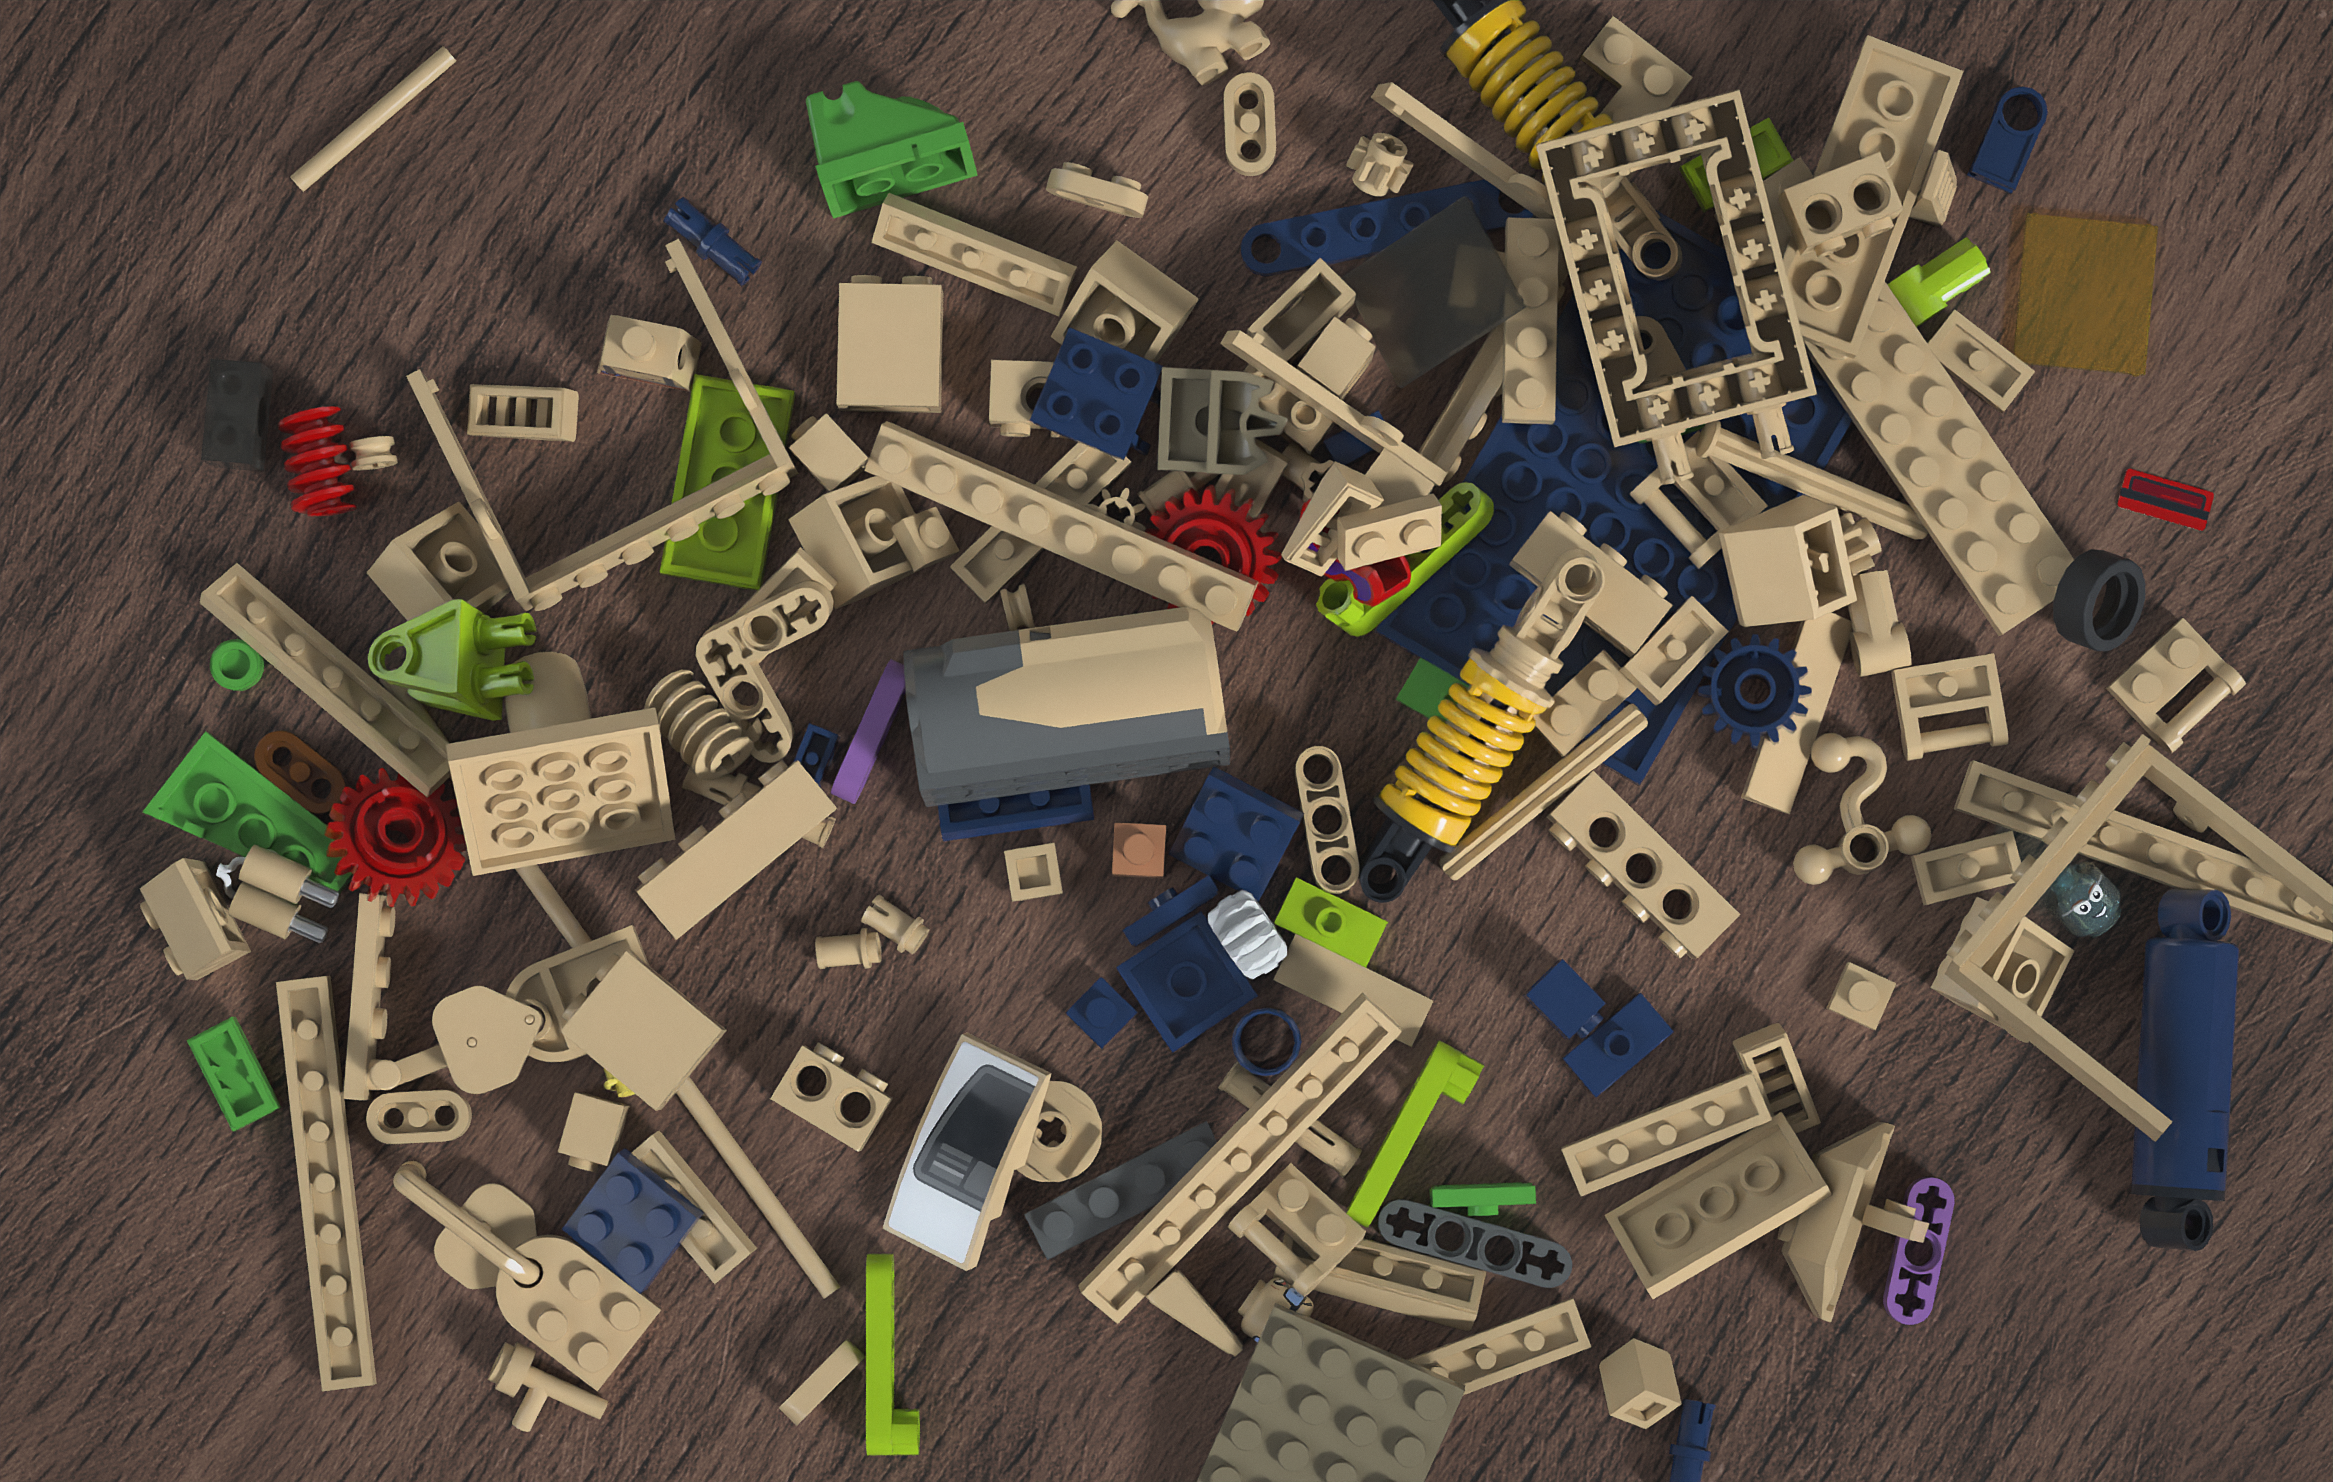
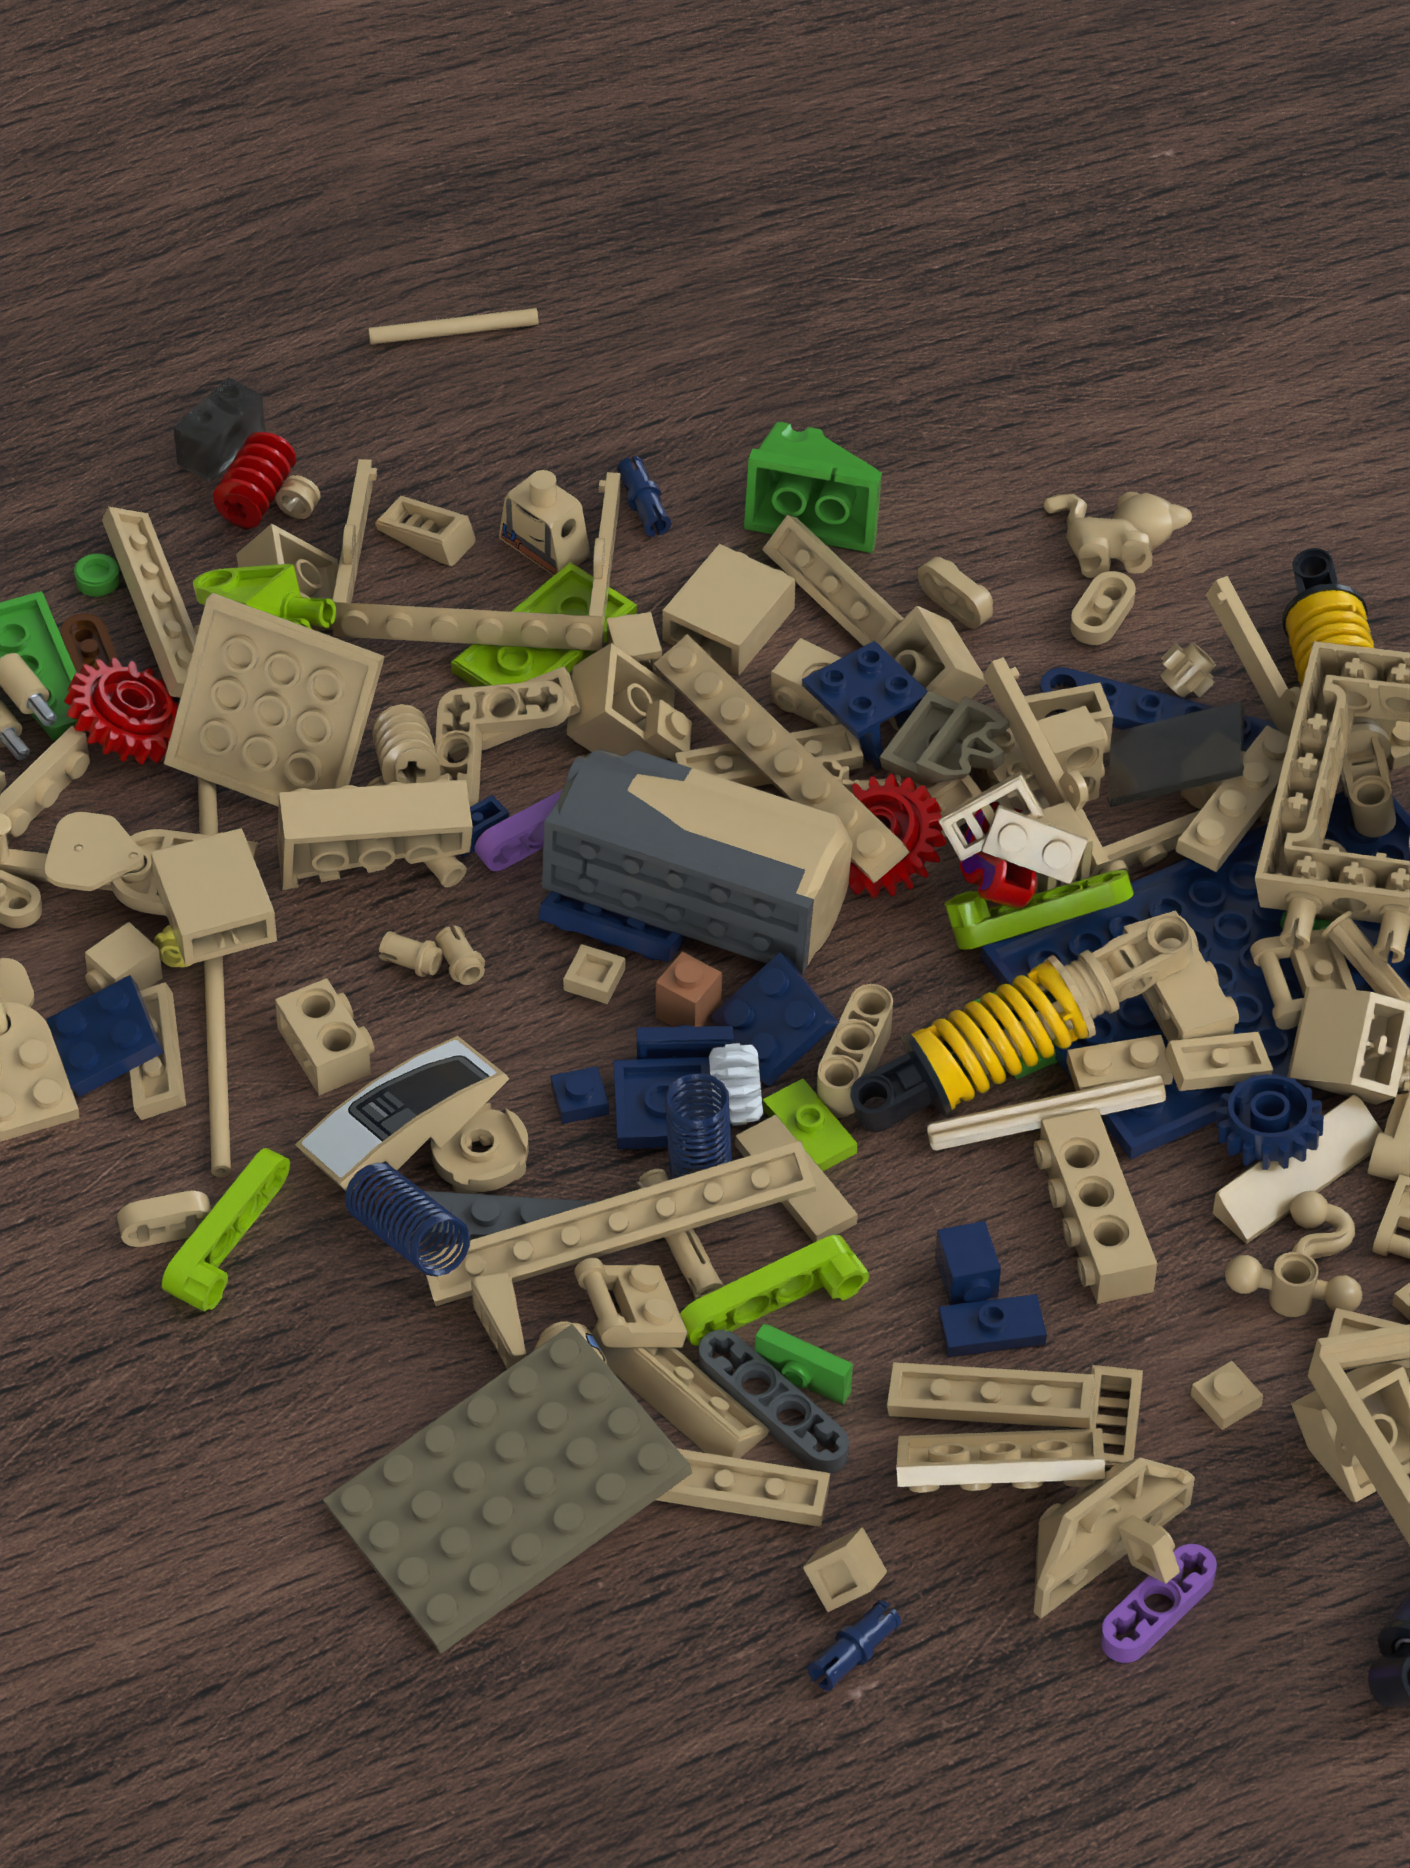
camera: 30 degrees right, 35 degrees down
(1096, 1301) = (407, 1250): none -> dark blue piece

